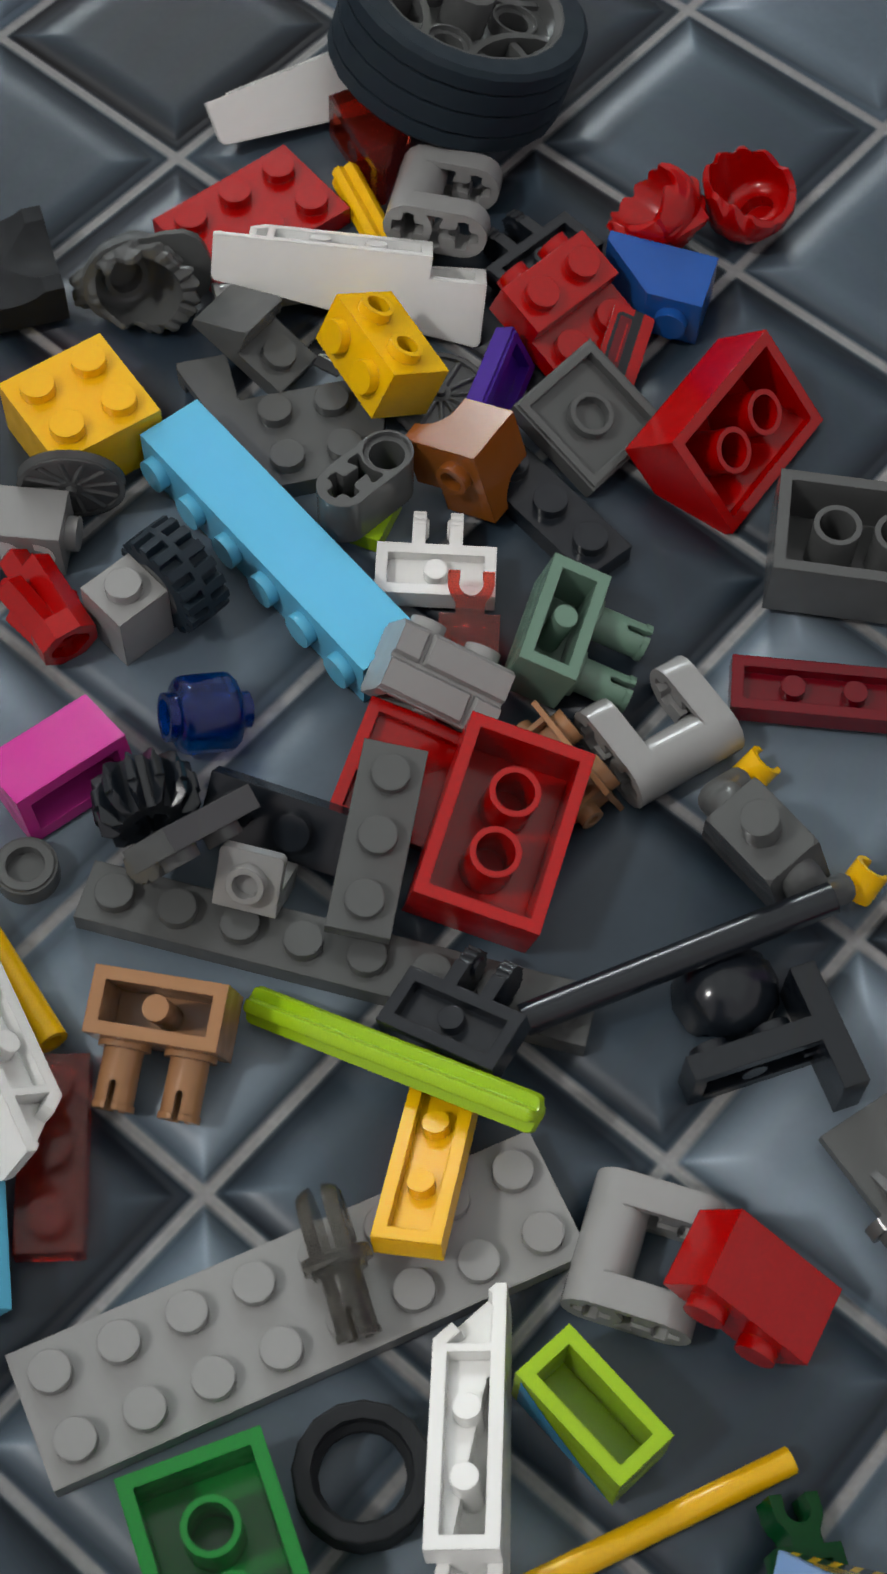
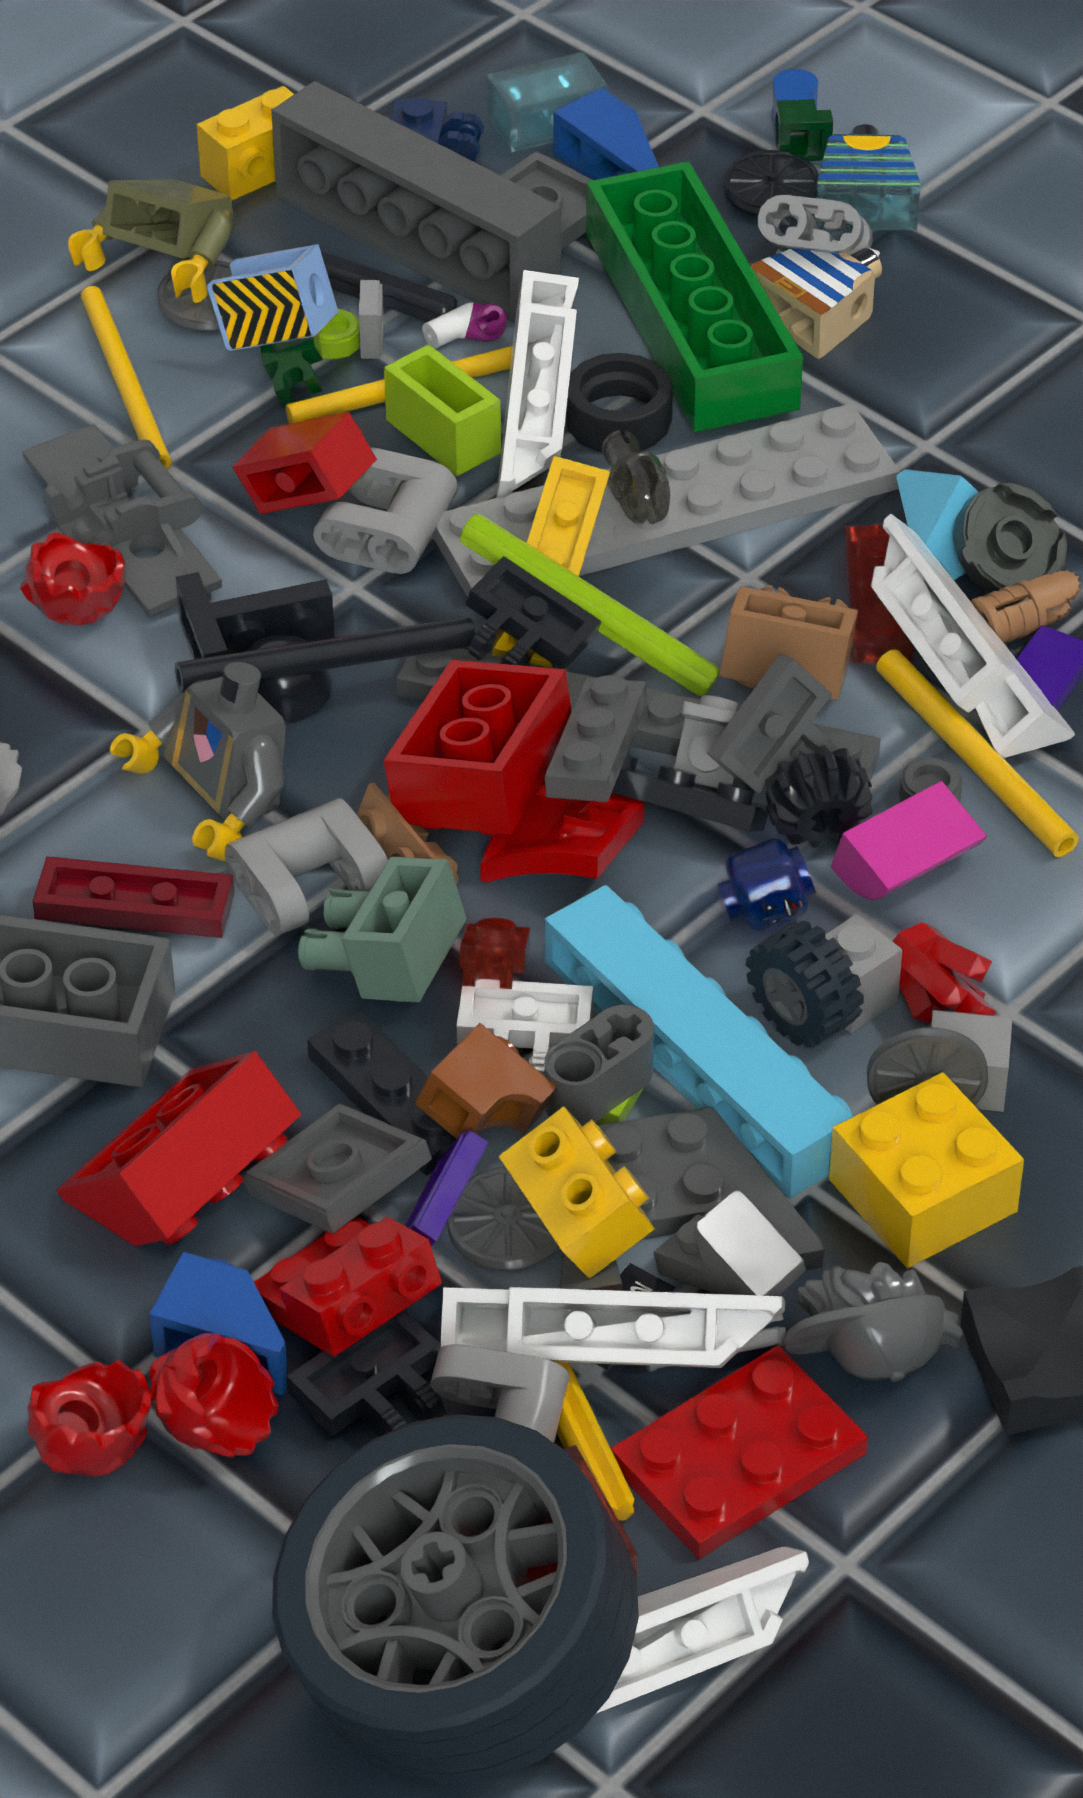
camera: 175 degrees left, 15 degrees down
(435, 675) = (531, 871): light grey brick -> none
(627, 339) = (281, 1244): sticker -> none

